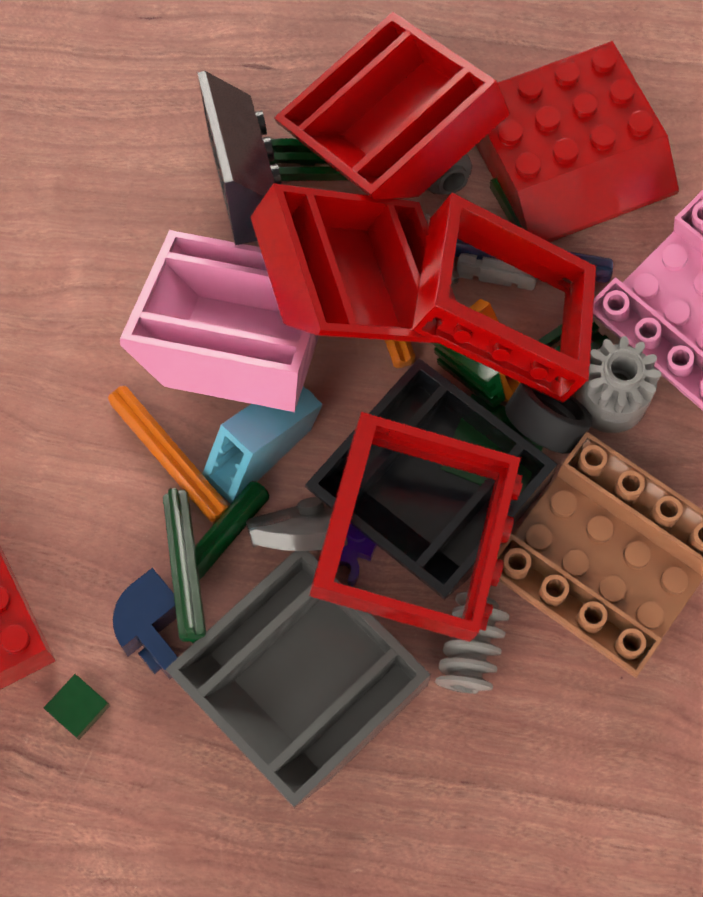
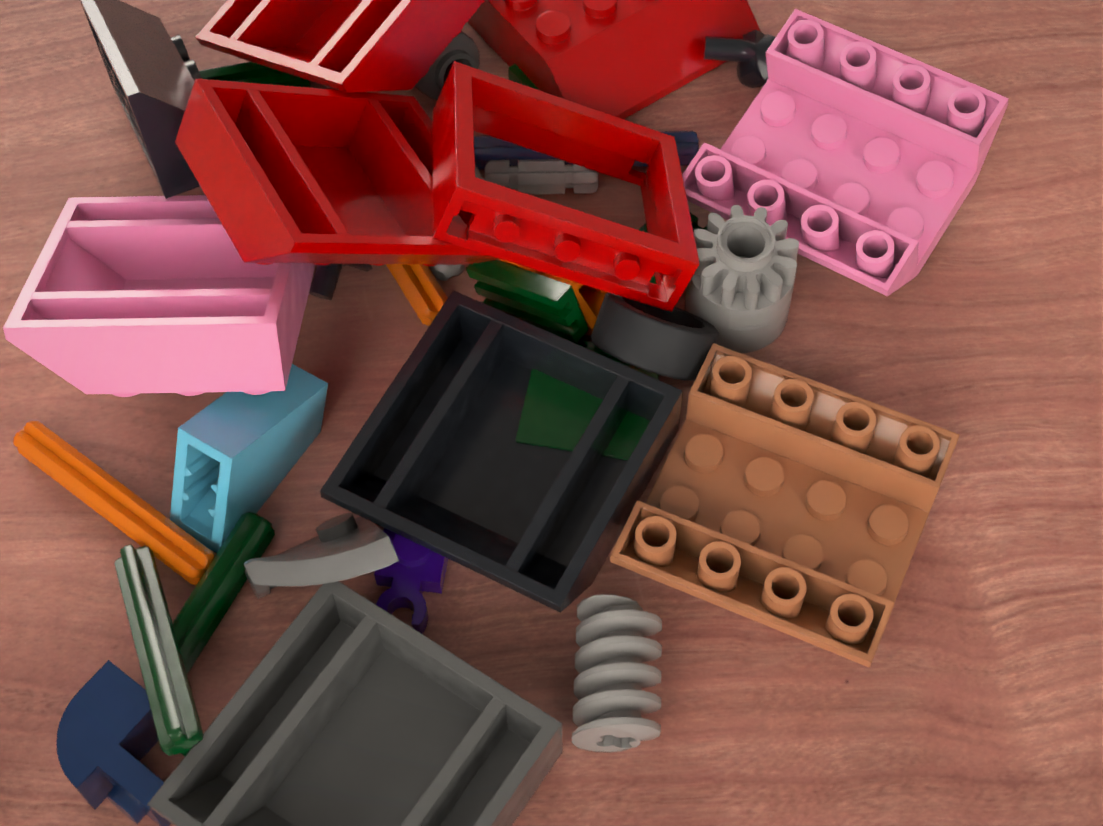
camera: 10 degrees left, 10 degrees down
(497, 527) = (514, 398): red window -> none
(665, 206) = (748, 52): none -> black plate

